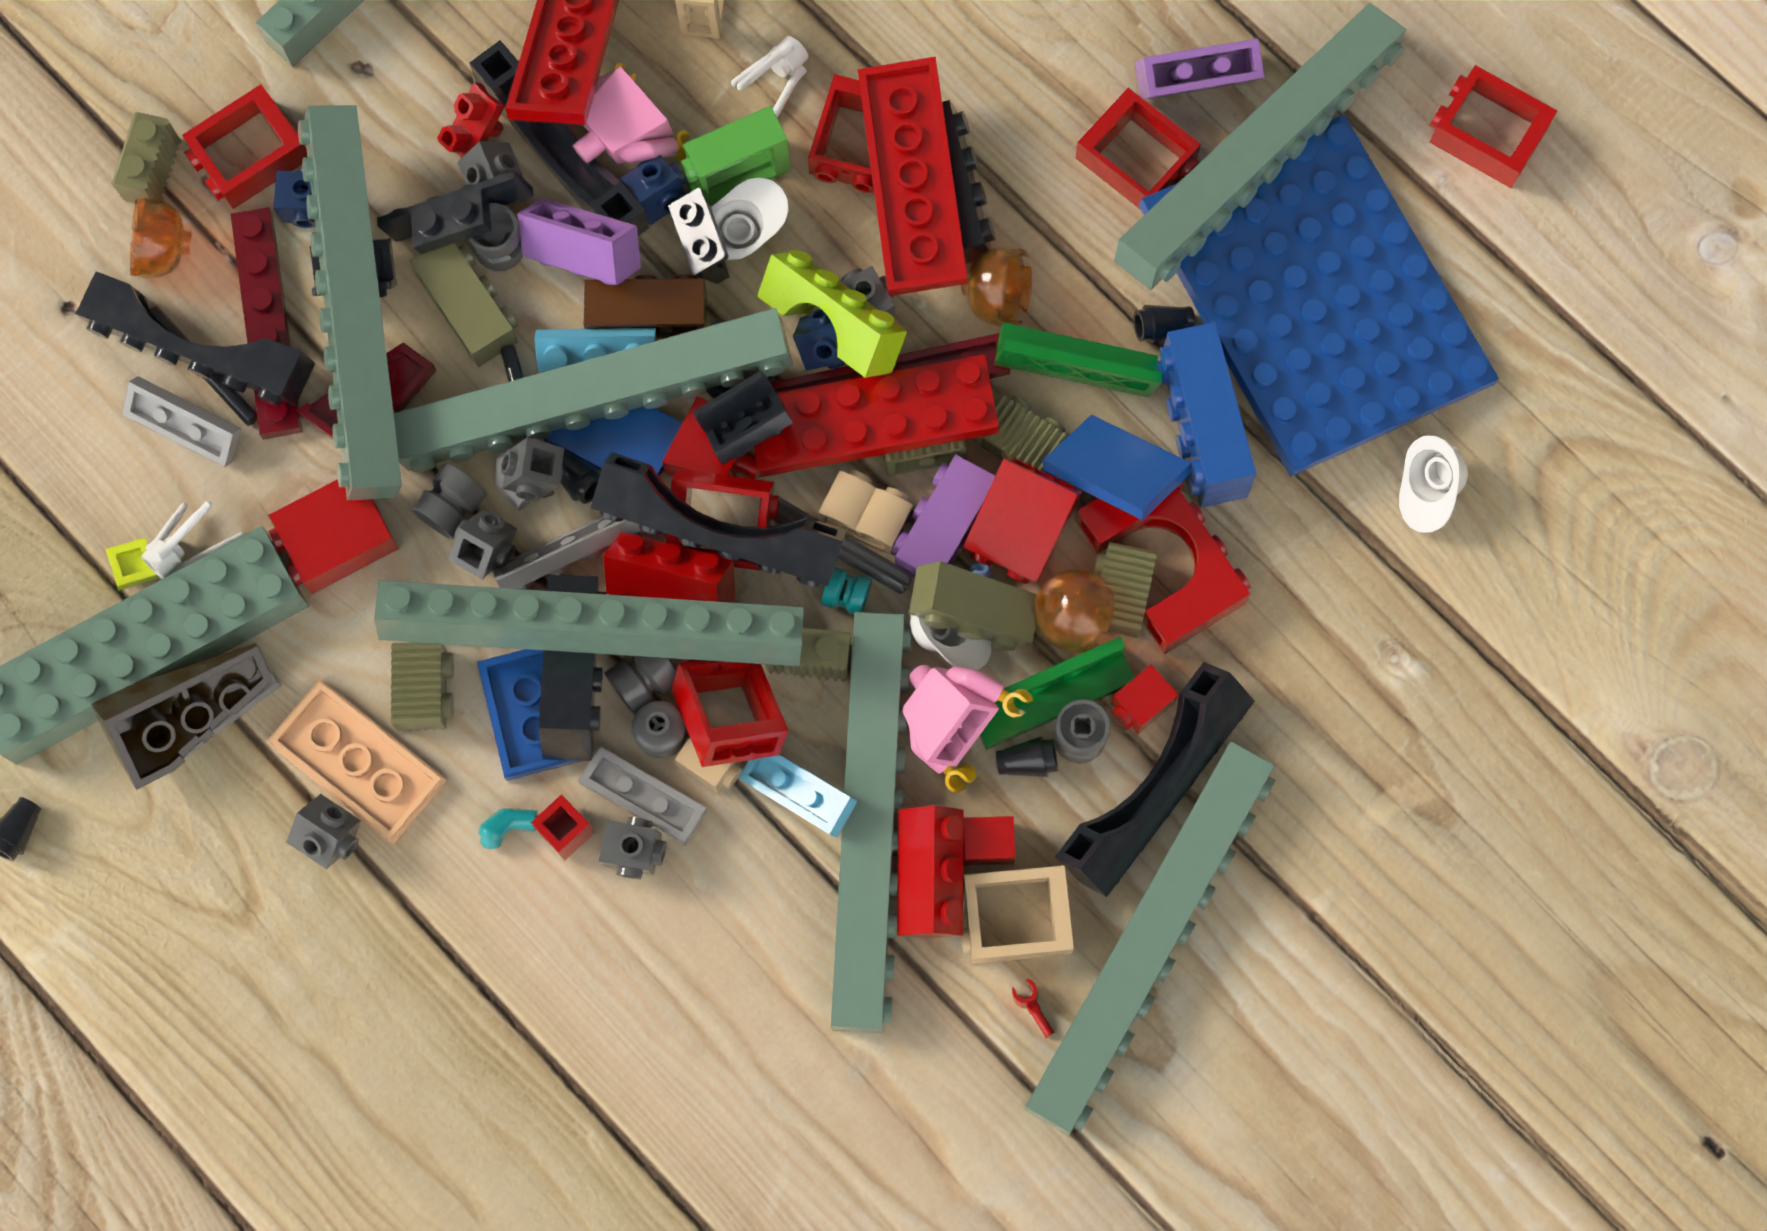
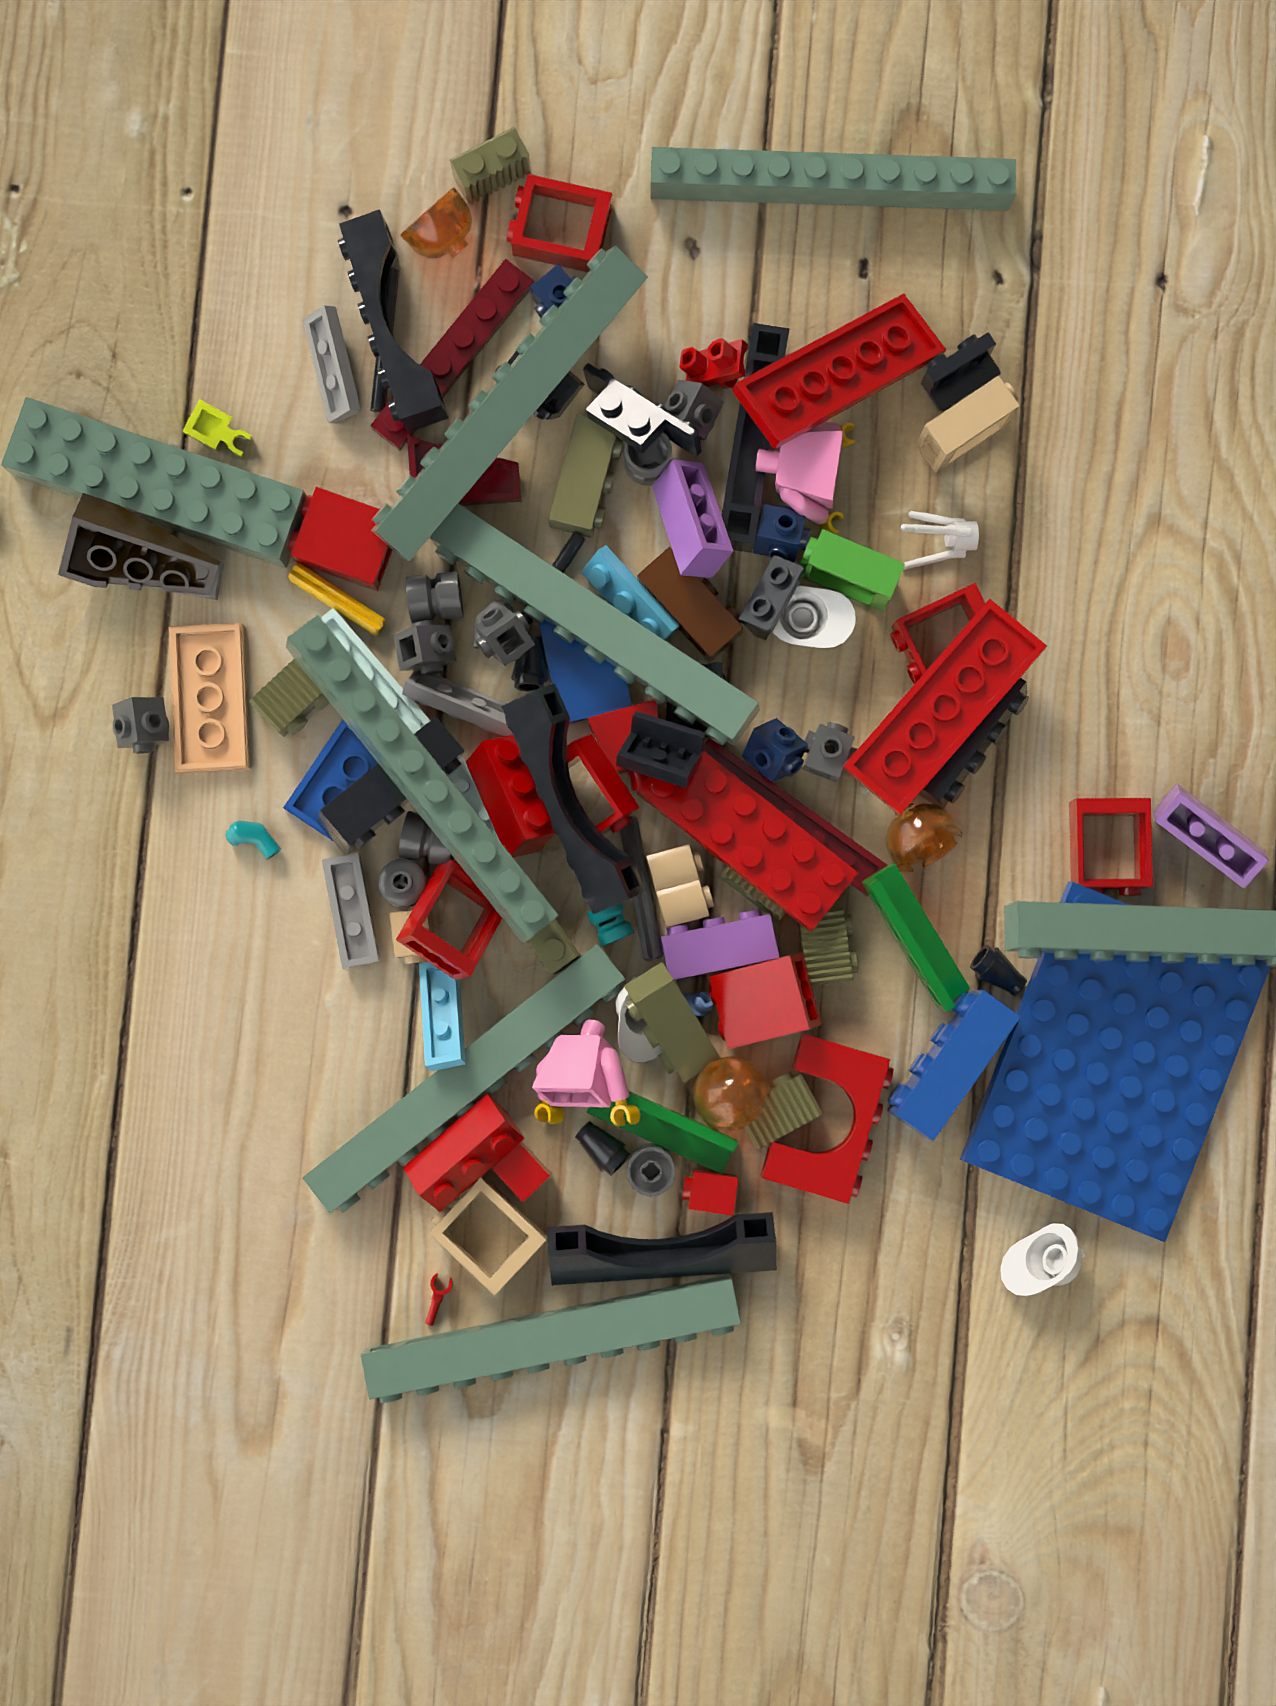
camera: 45 degrees right, 10 degrees up
(165, 554) = (230, 442): white plant -> none
(366, 586) = (337, 599): none -> yellow axle
(563, 827) = (280, 879): red brick -> none
(618, 843) = (296, 932): dark grey brick -> none
(865, 336) = (796, 780): lime arch -> none
(1117, 467) = (857, 1035): blue tile -> none

